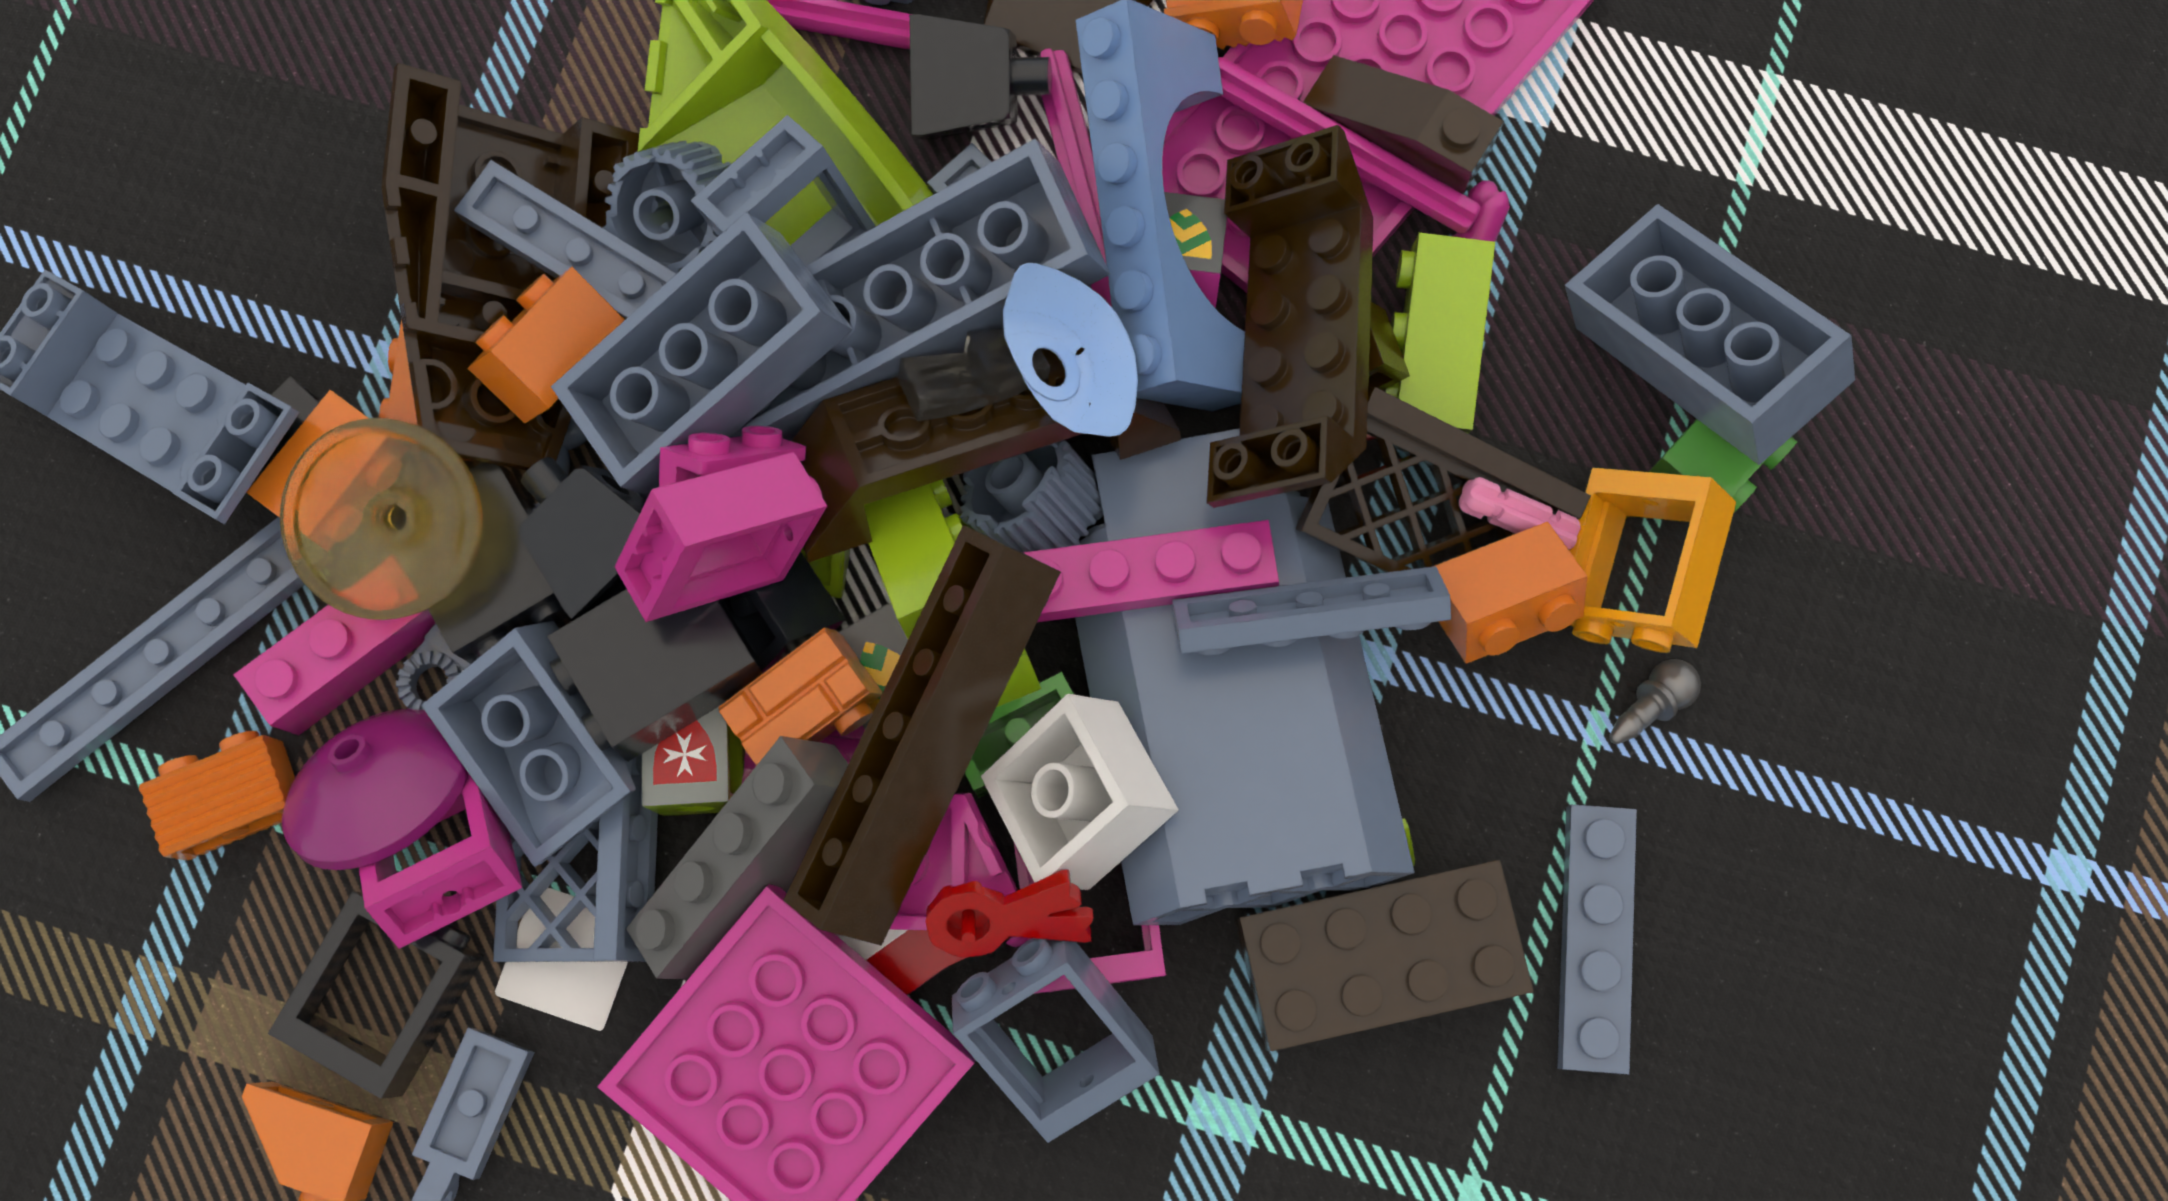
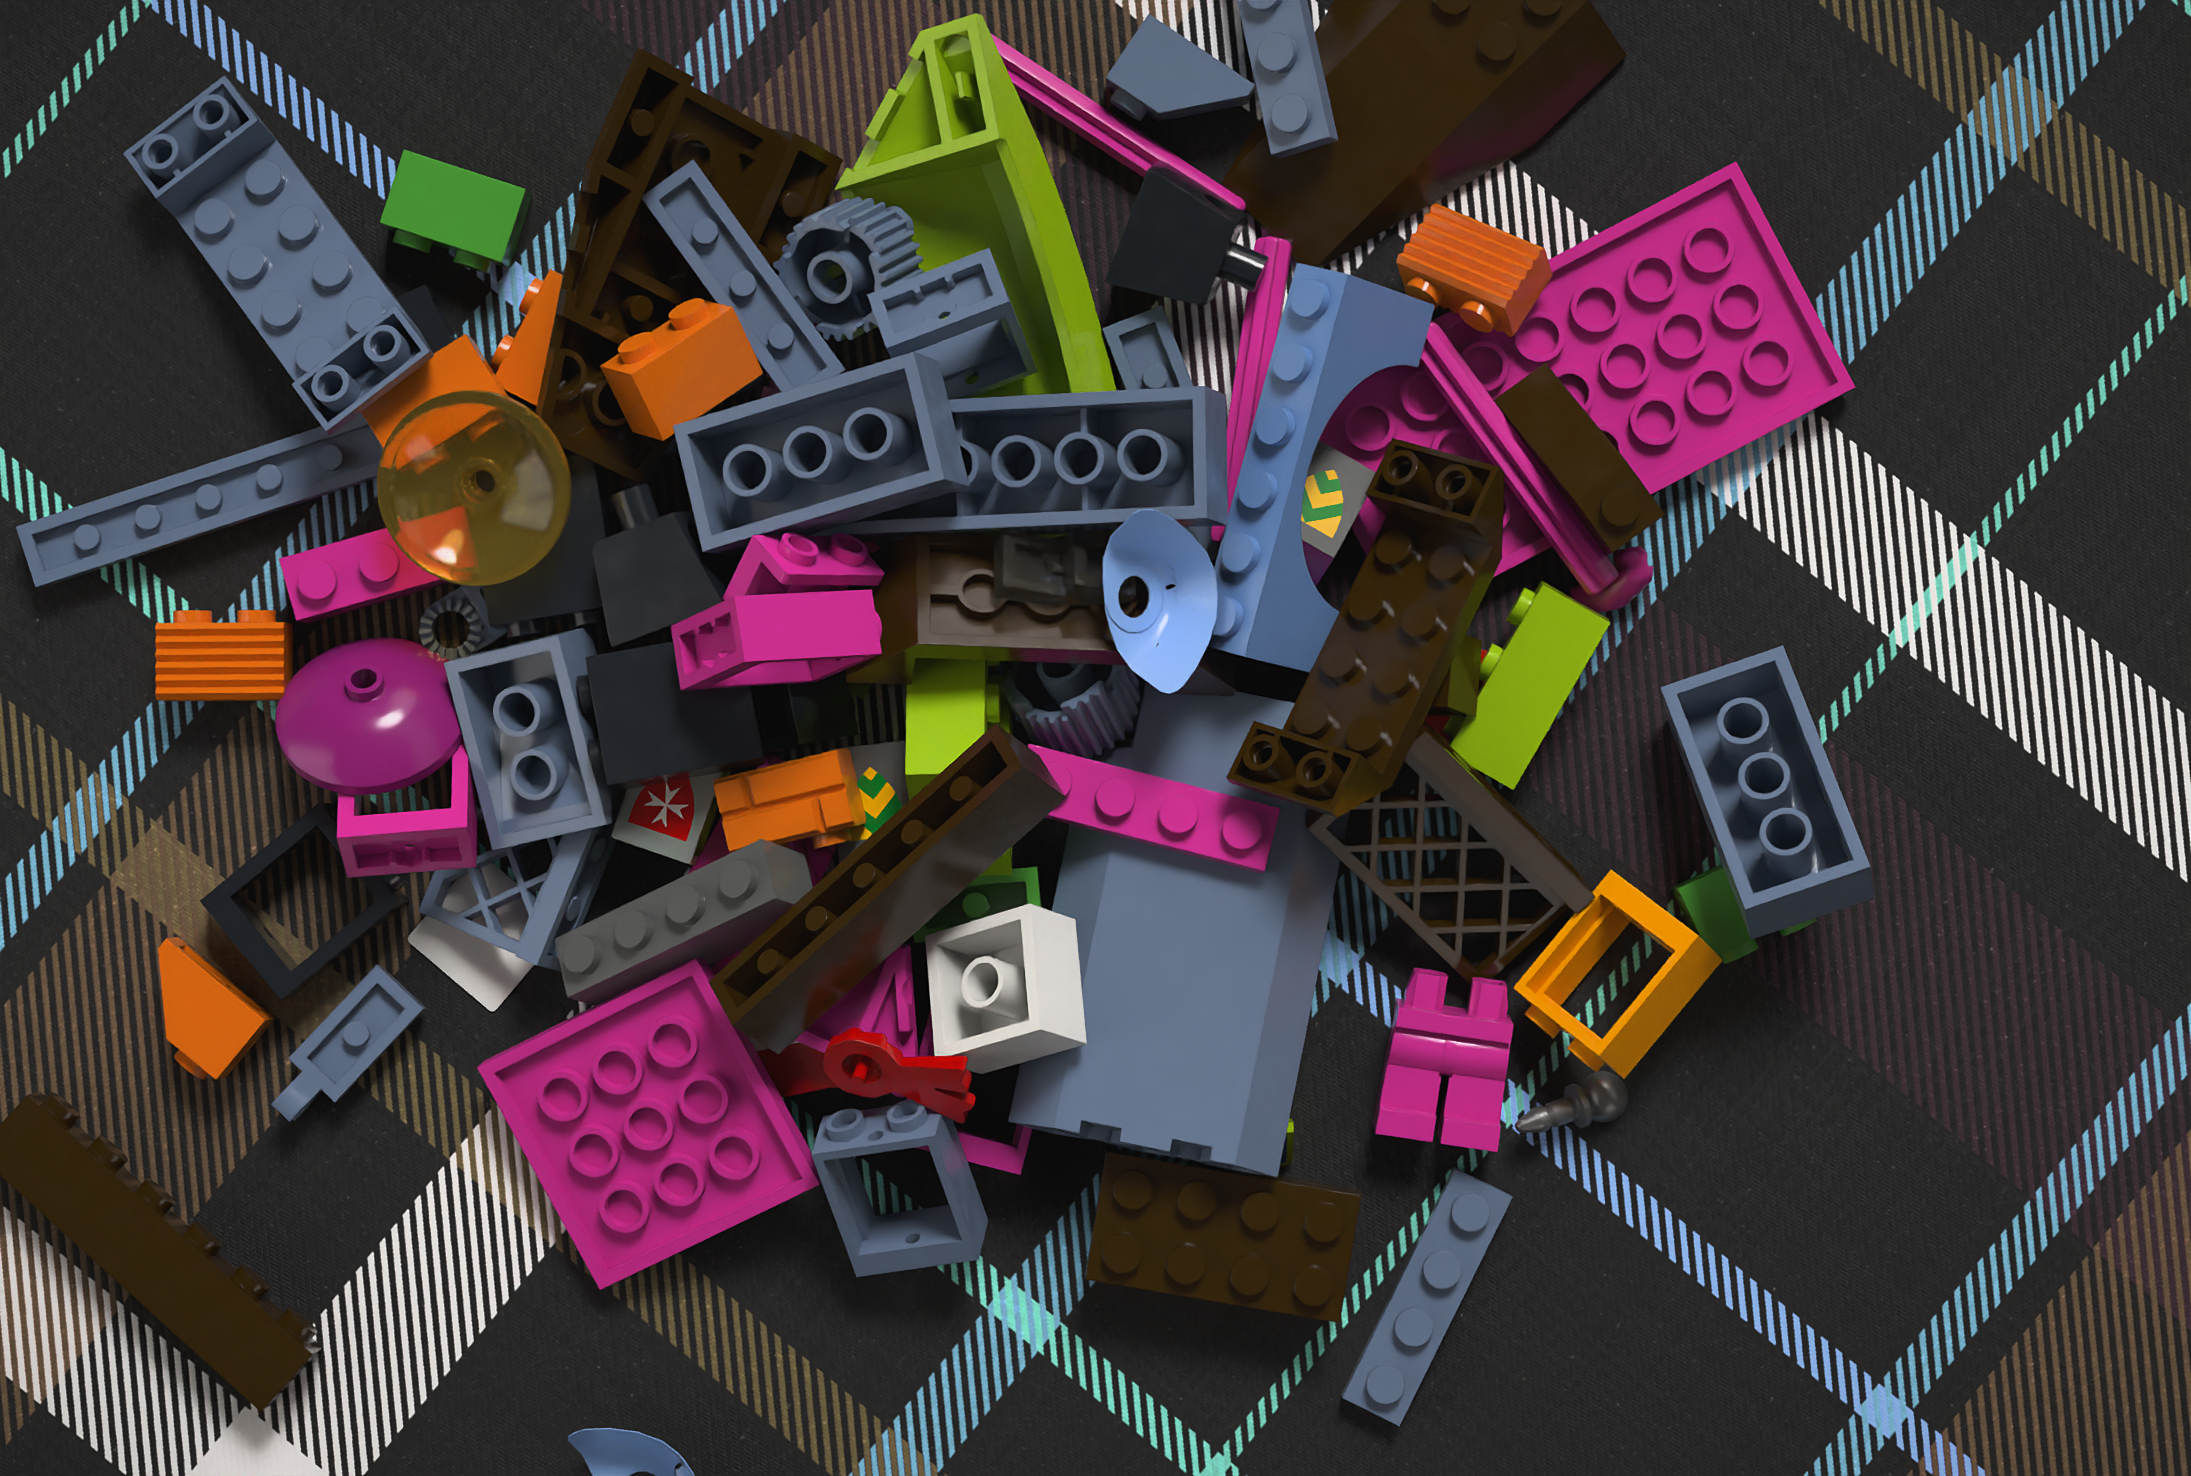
camera: 20 degrees right, 10 degrees up
(302, 309) = (455, 211): none -> bright green brick
(1311, 609) = (1280, 910): sand blue plate -> none
(1512, 592) = (1473, 960): orange brick -> none
(1514, 510) = (1519, 889): bright pink axle -> none
(1523, 717) = (1450, 1042): none -> dark pink hips

